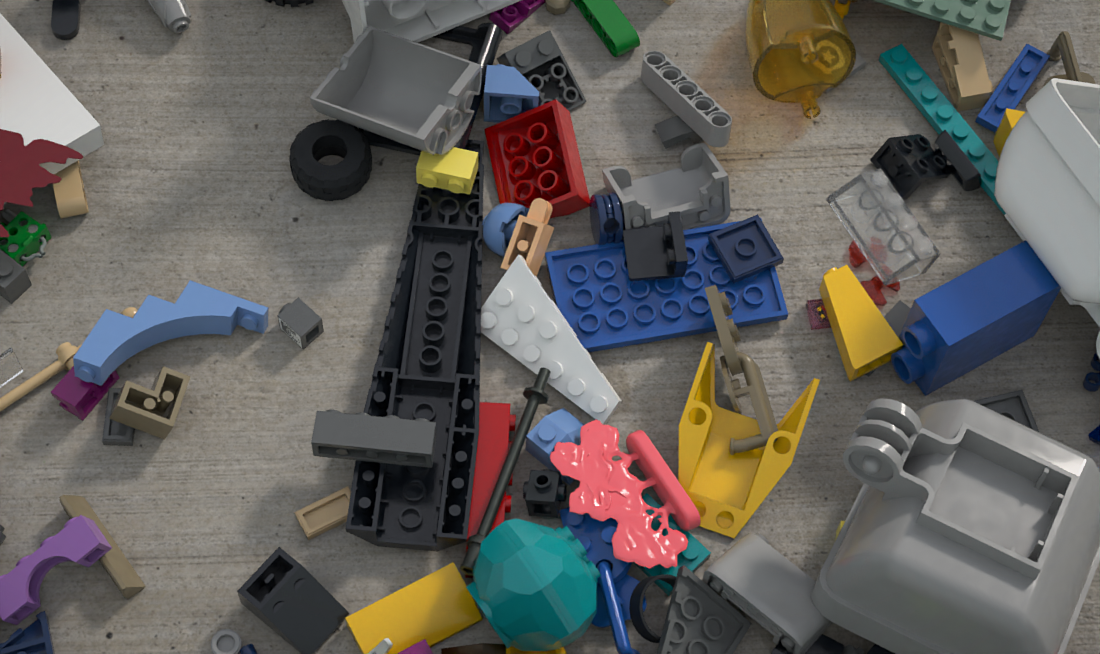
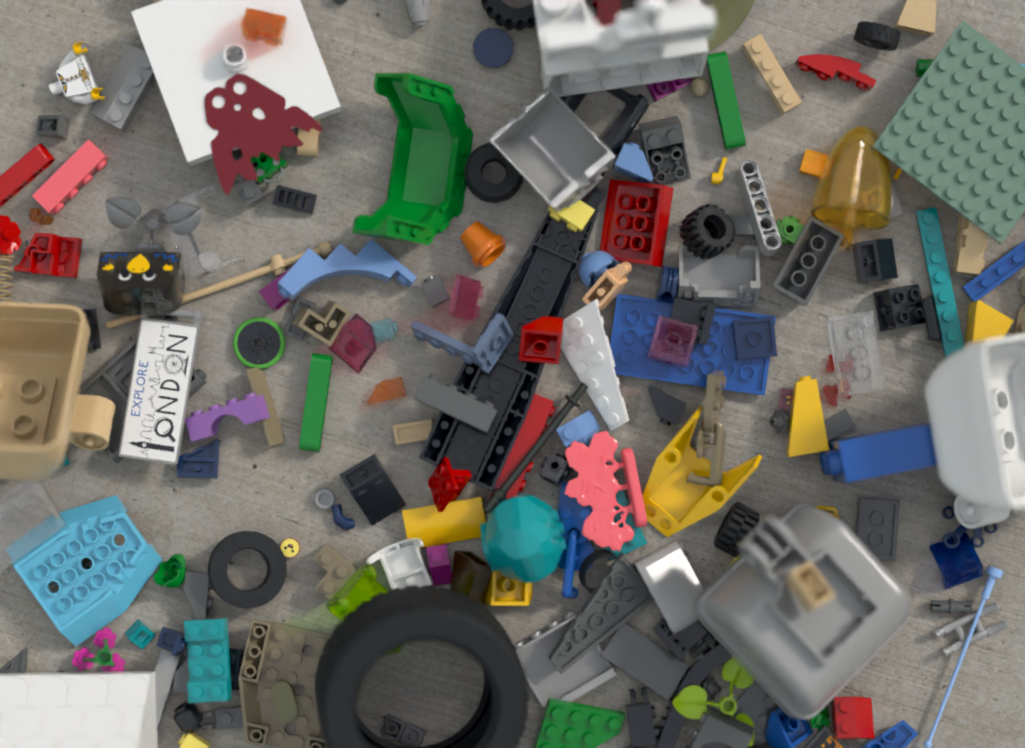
camera: 25 degrees right, 25 degrees up
(60, 263) = (278, 192): none -> black slope
(61, 449) = (272, 340): none -> black wheel
(174, 516) = (315, 402): none -> green beam
(207, 421) = (355, 343): none -> clear pink slope
(235, 161) = (426, 164): none -> green windscreen
(243, 394) = (384, 329): none -> clear light blue bracket
(273, 471) = (387, 390): none -> clear orange slope
(282, 30) = (493, 48): none -> dark blue tile
(343, 312) = (465, 298): none -> clear pink slope
(345, 244) = (482, 244): none -> orange piece
(393, 358) = (486, 351): none -> sand blue bracket
(398, 555) = (447, 483): none -> red bracket
(465, 326) = (541, 340): none -> red slope
(619, 89) = (717, 178): none -> yellow hand
(632, 142) = (717, 224): none -> black tyre
(641, 278) = (672, 342): none -> clear pink slope
(662, 367) = (666, 406): none -> black slope
(730, 41) = (812, 162): none -> light orange piece
(742, 114) = (795, 229): none -> bright green brick
(773, 140) = (807, 261): none -> dark grey slope
(822, 340) = (780, 421): none -> dark grey plant
(825, 486) = (735, 528): none -> black tyre
(853, 119) = (874, 260): none -> black slope
(965, 472) = (809, 587): none -> tan slope

